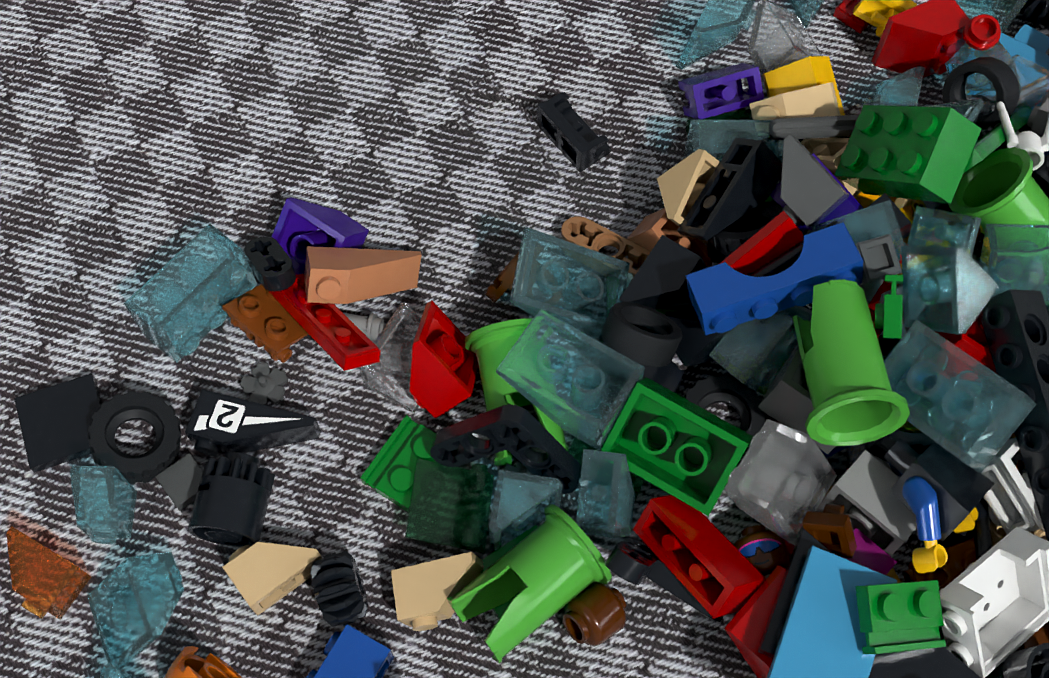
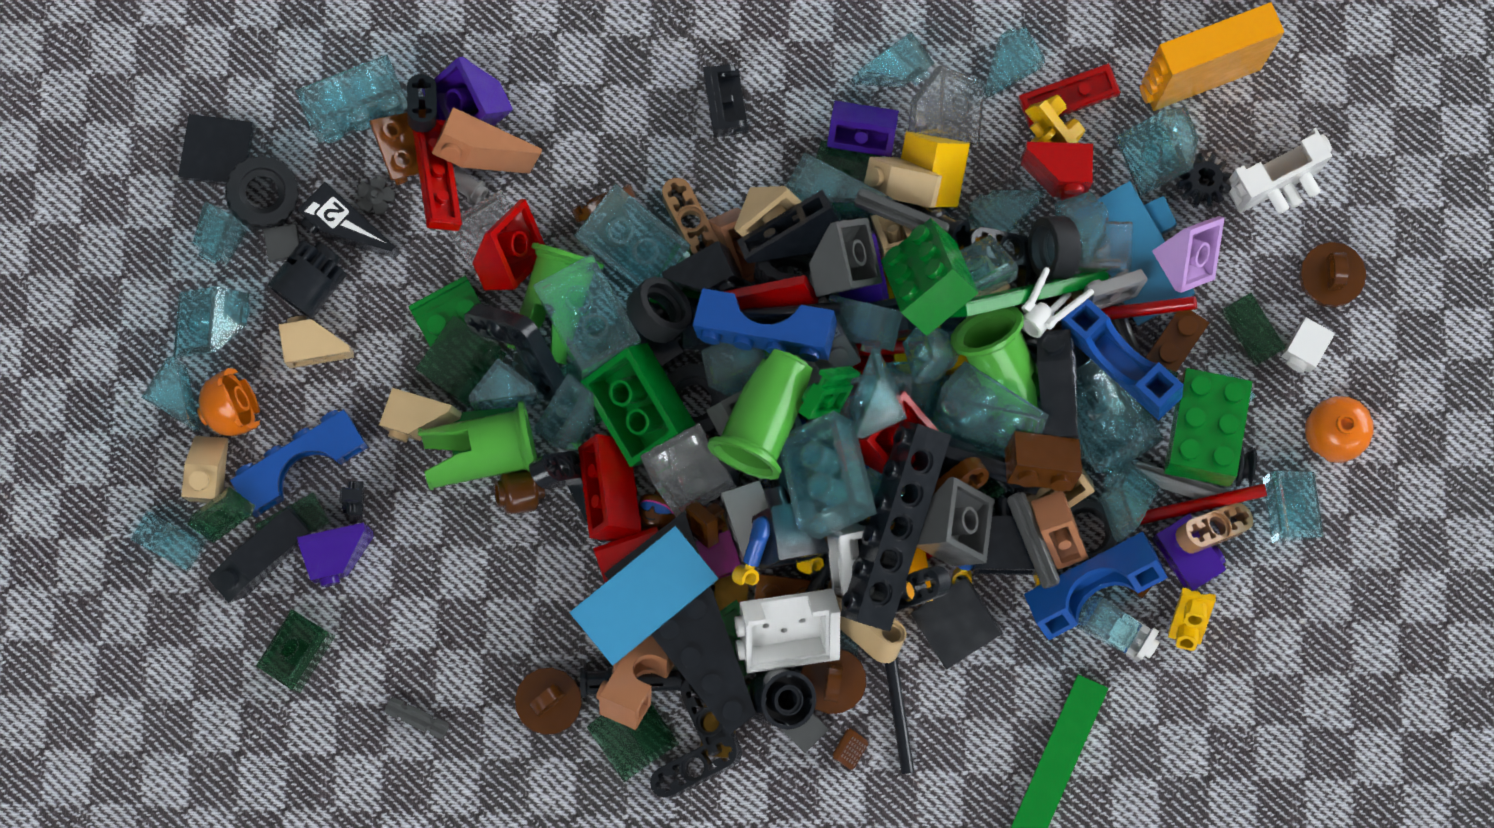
camera: 30 degrees right, 15 degrees up
(42, 576) = (154, 264): clear orange slope -> none
(339, 589) = (351, 381): black gear -> none
(878, 258) = (849, 347): dark grey tile -> none
(900, 616) = (703, 602): green plate -> none
(982, 32) = (1092, 195): red plate -> none

